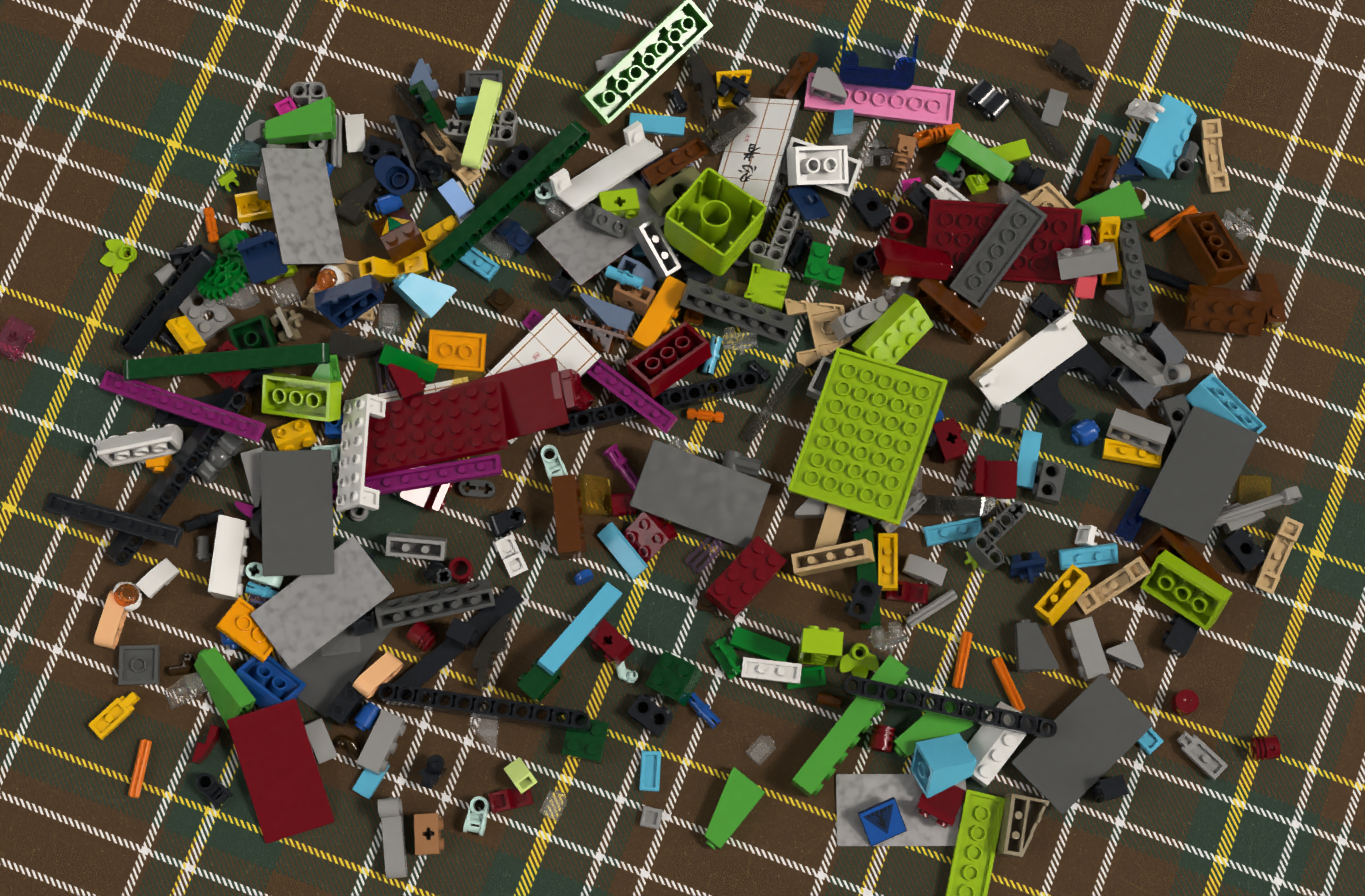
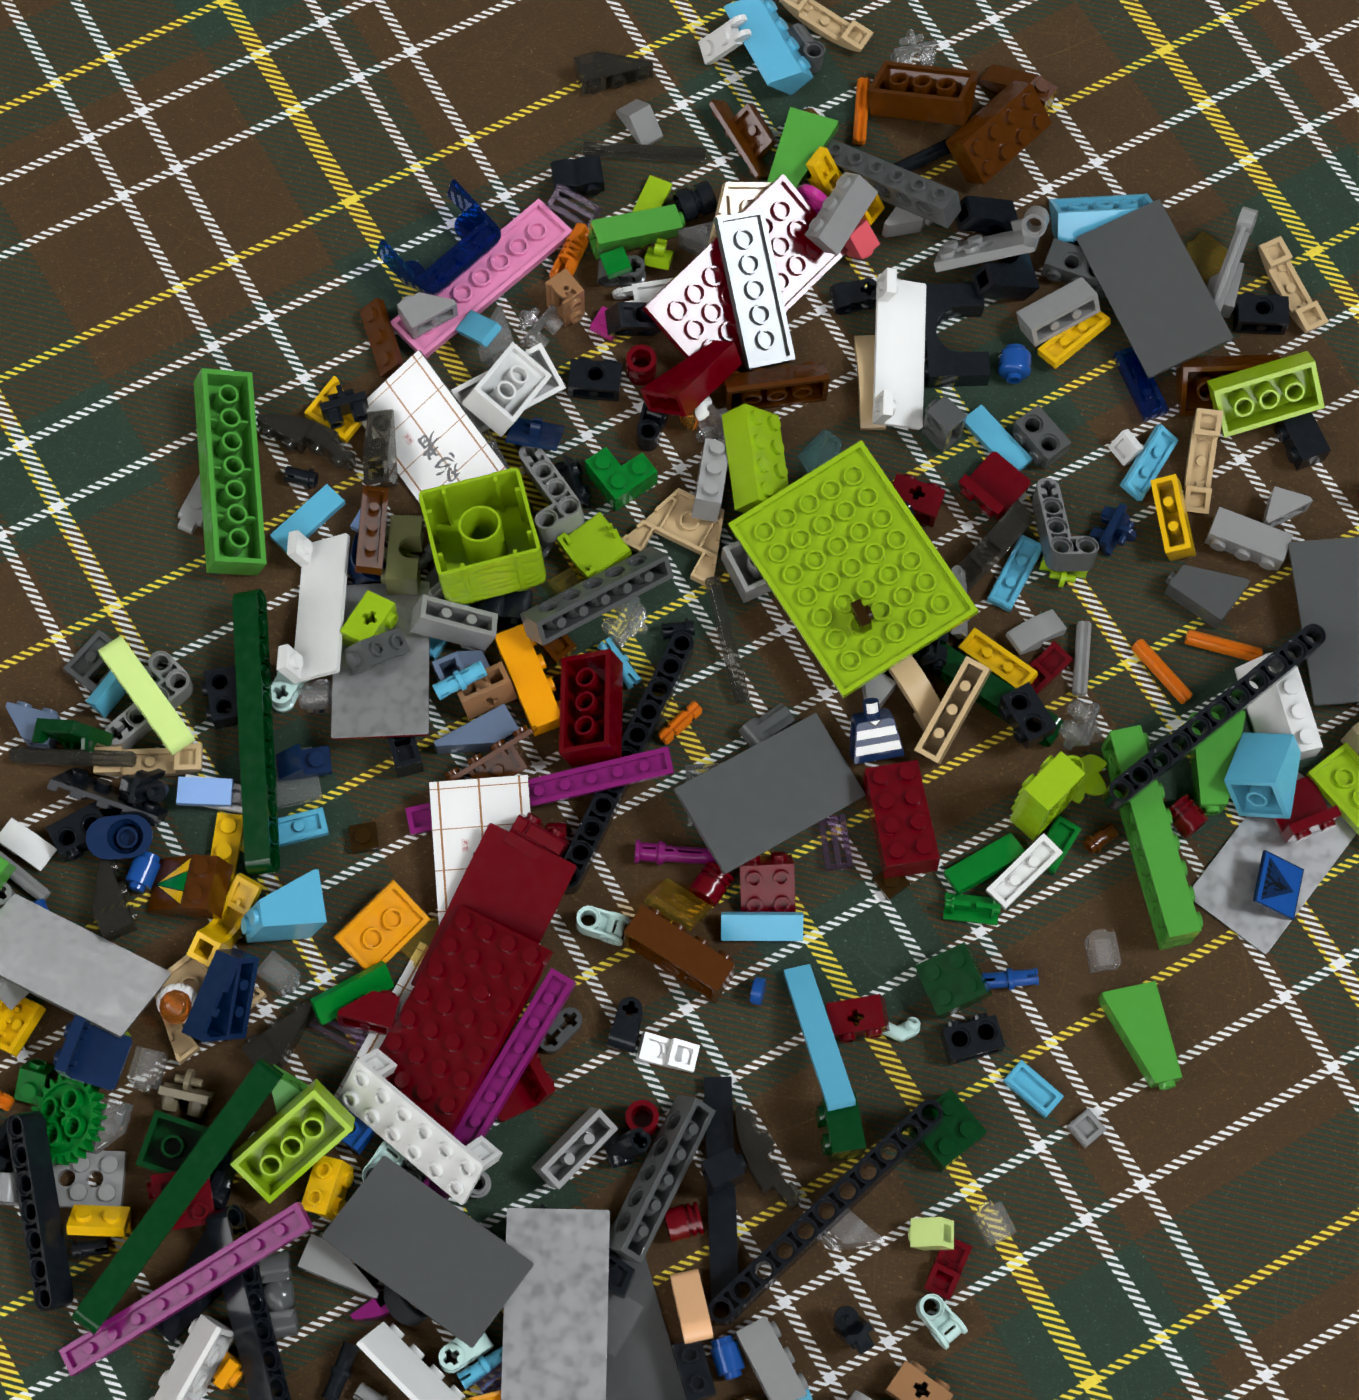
camera: 55 degrees left, 5 degrees down
(784, 526) = (874, 734): none -> dark blue torso
(840, 462) = (862, 615): none -> dark brown plate
(934, 365) = (820, 450): none -> clear light blue slope
(969, 96) = (555, 195): none -> clear purple tile
(1129, 171) = (771, 105): dark blue slope -> none

